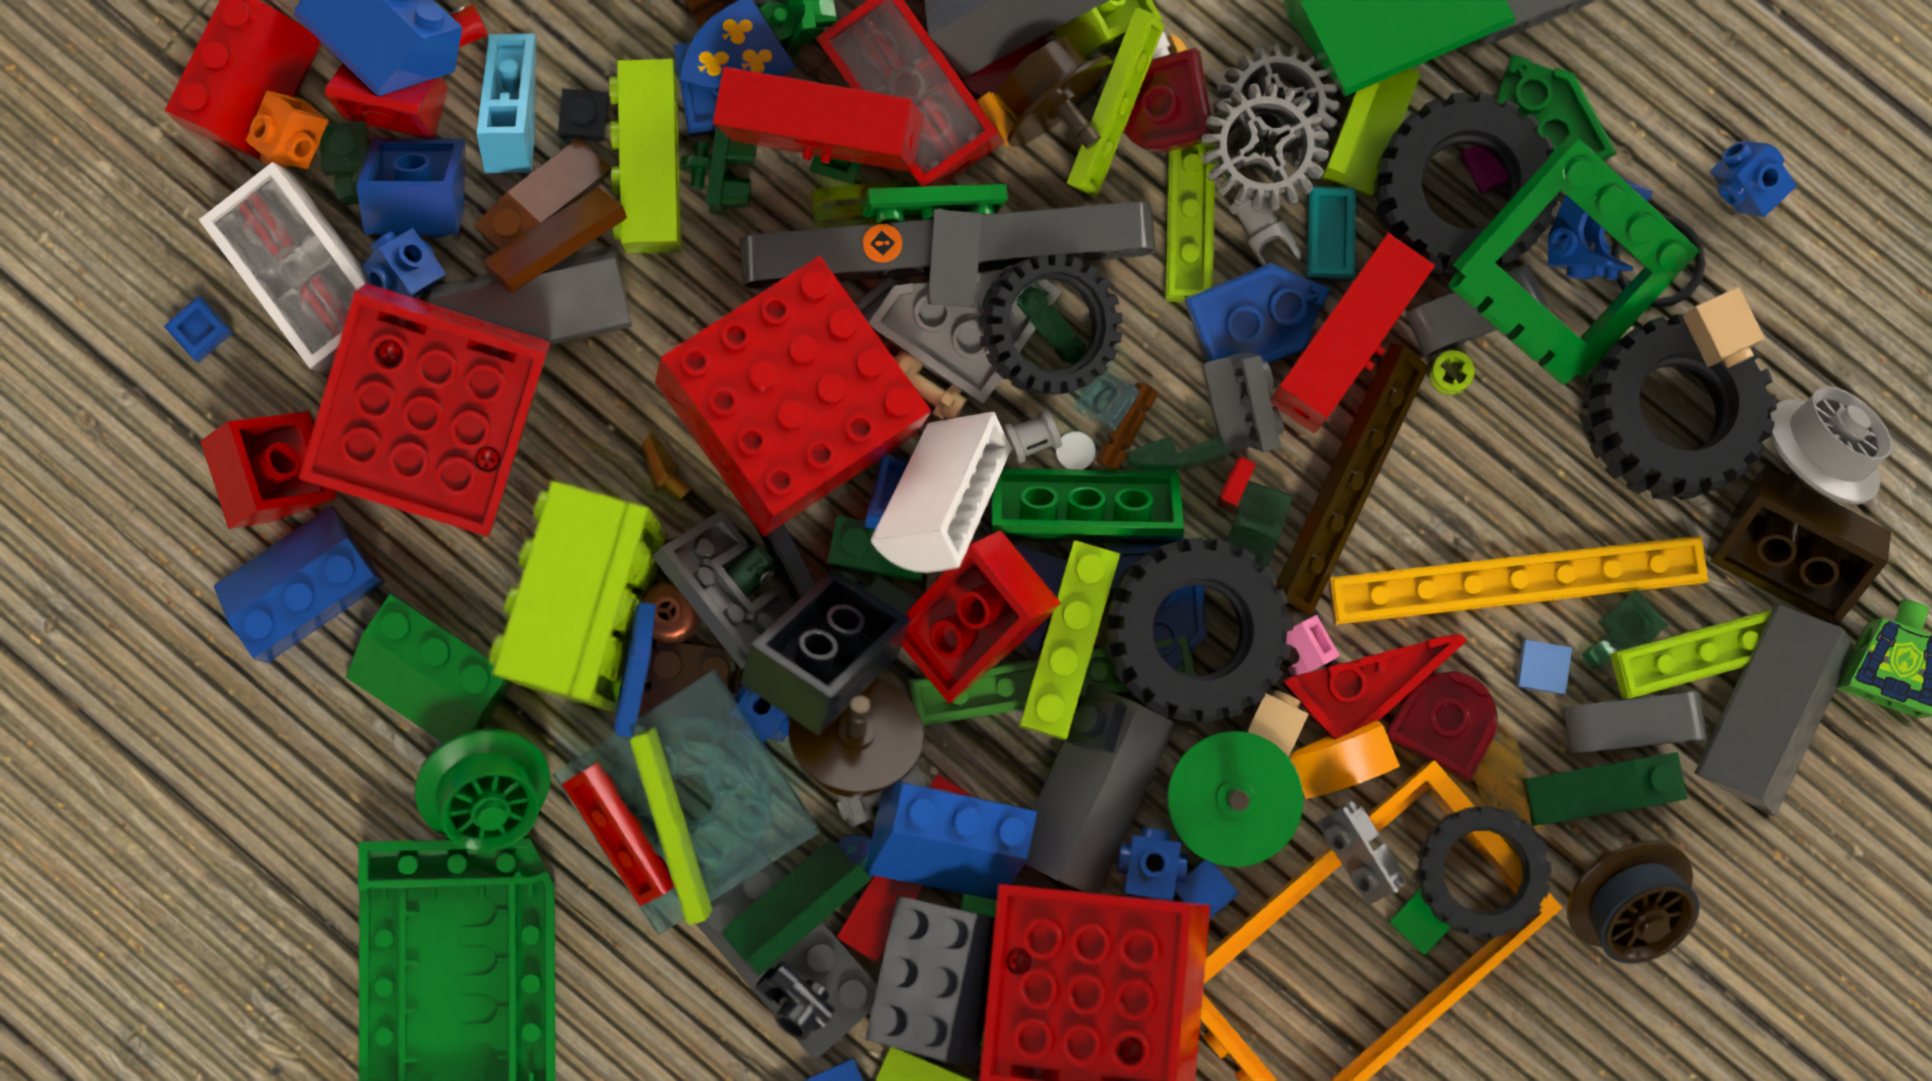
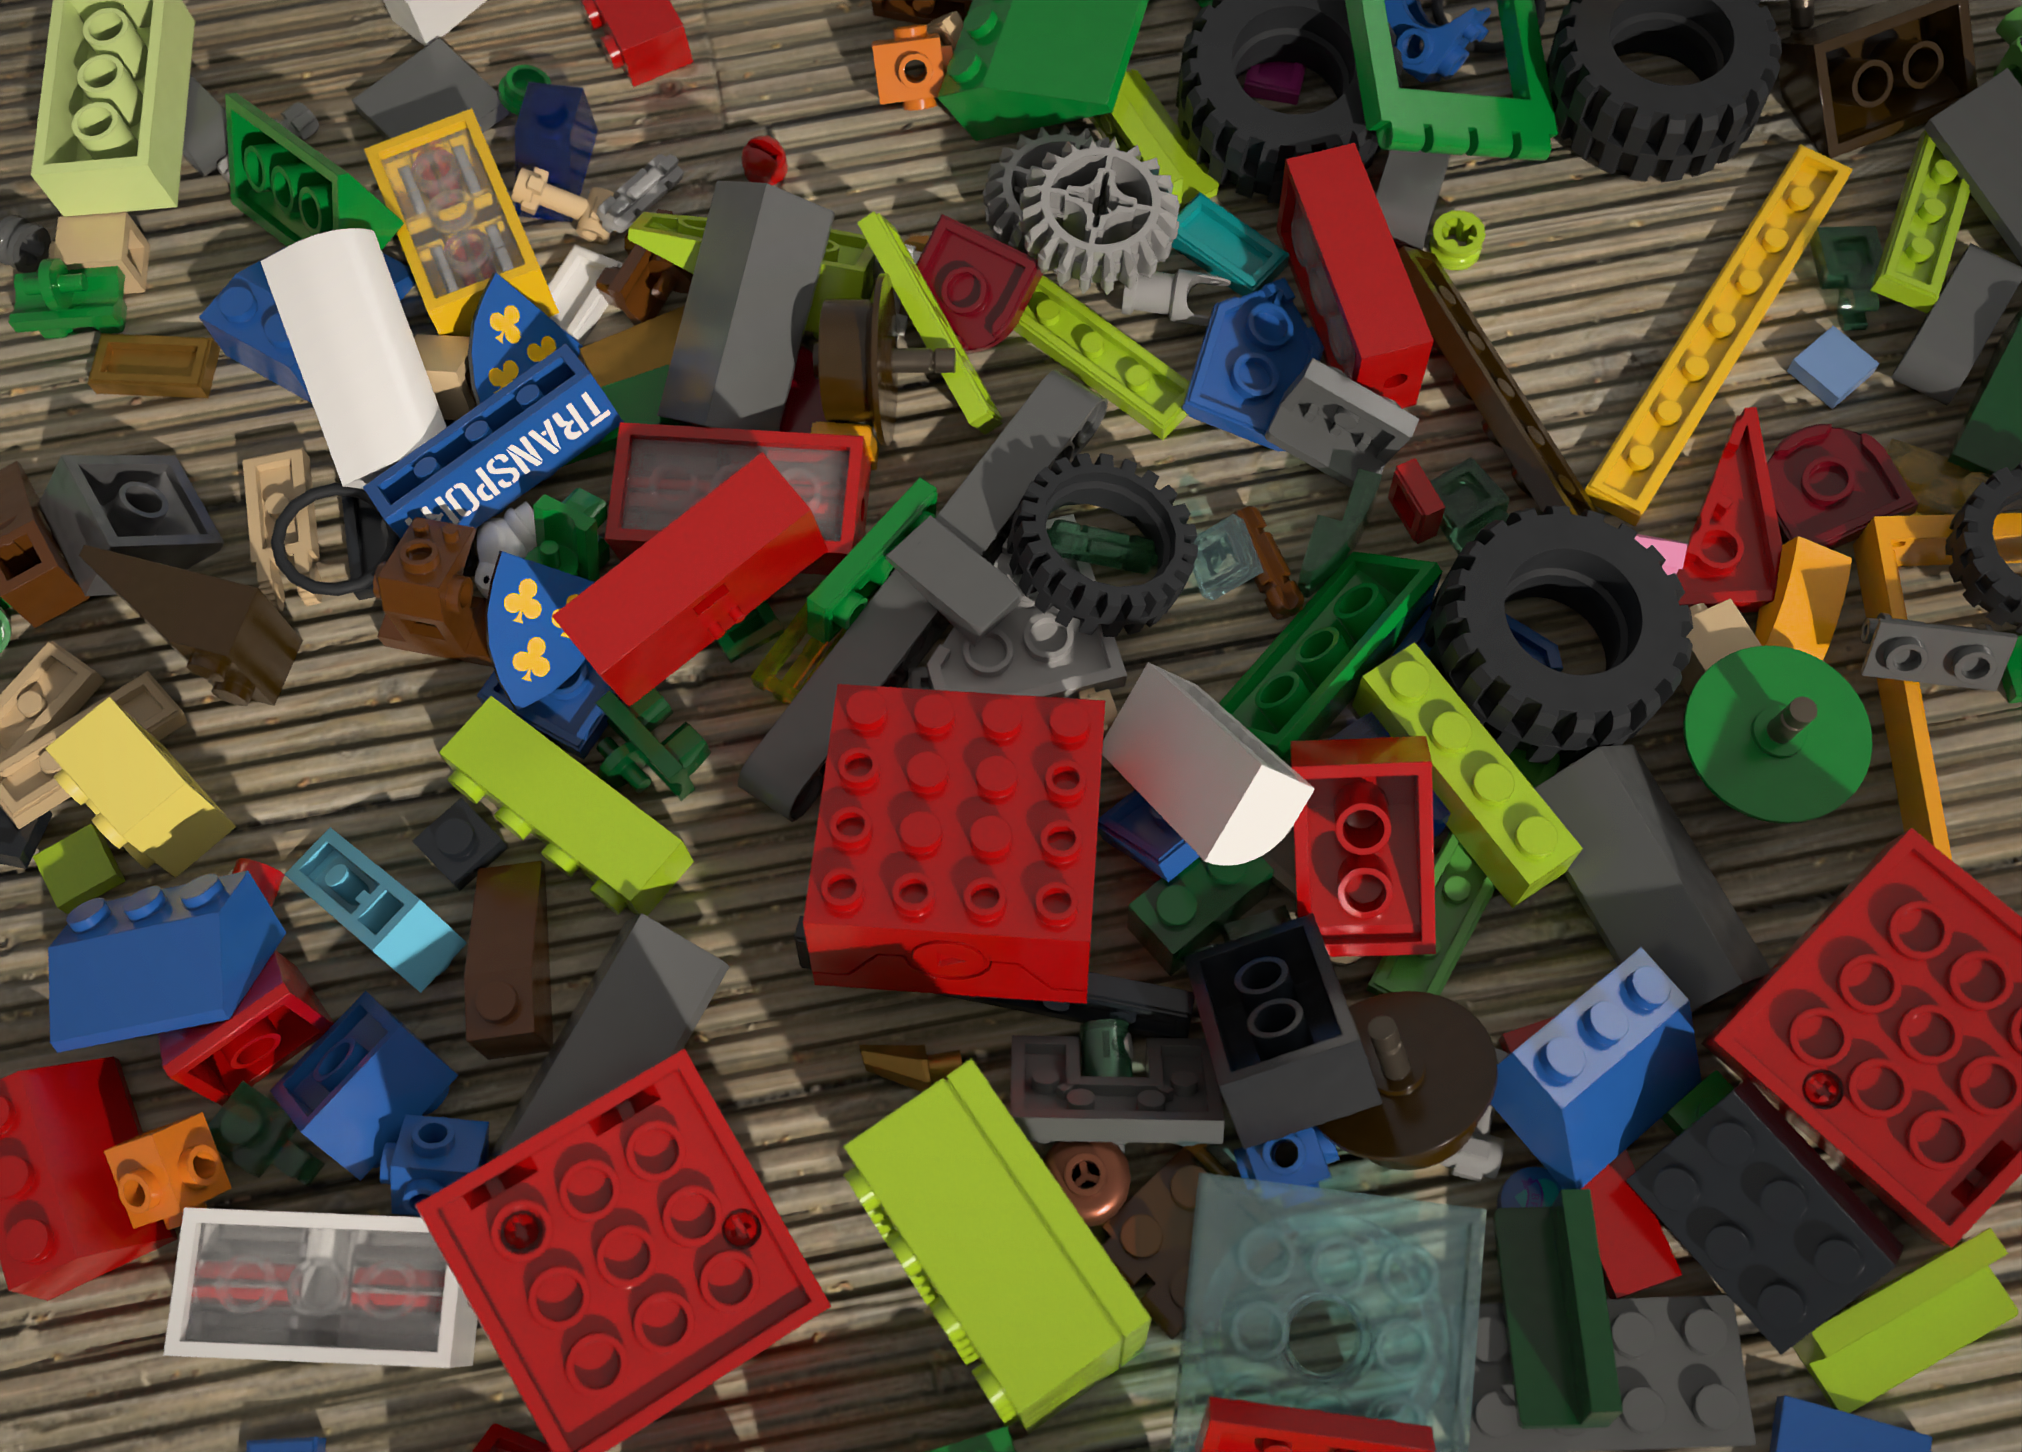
camera: 40 degrees left, 15 degrees down
(554, 239) = (563, 965): reddish brown tile -> none
(634, 669) = (1141, 1261): blue tile -> none
(671, 826) = (1354, 1374): lime tile -> none
(802, 1003) = (1677, 1394): black plate -> none
(882, 243) = (872, 639): orange sticker -> none
(1032, 436) = (1203, 651): light grey bush -> none
(1076, 451) = (1248, 633): white sticker -> none
(1096, 724) = (1588, 809): black plate -> none
(1138, 878) = (1785, 881): blue brick -> none
(1206, 886) = (1841, 851): blue tile -> none

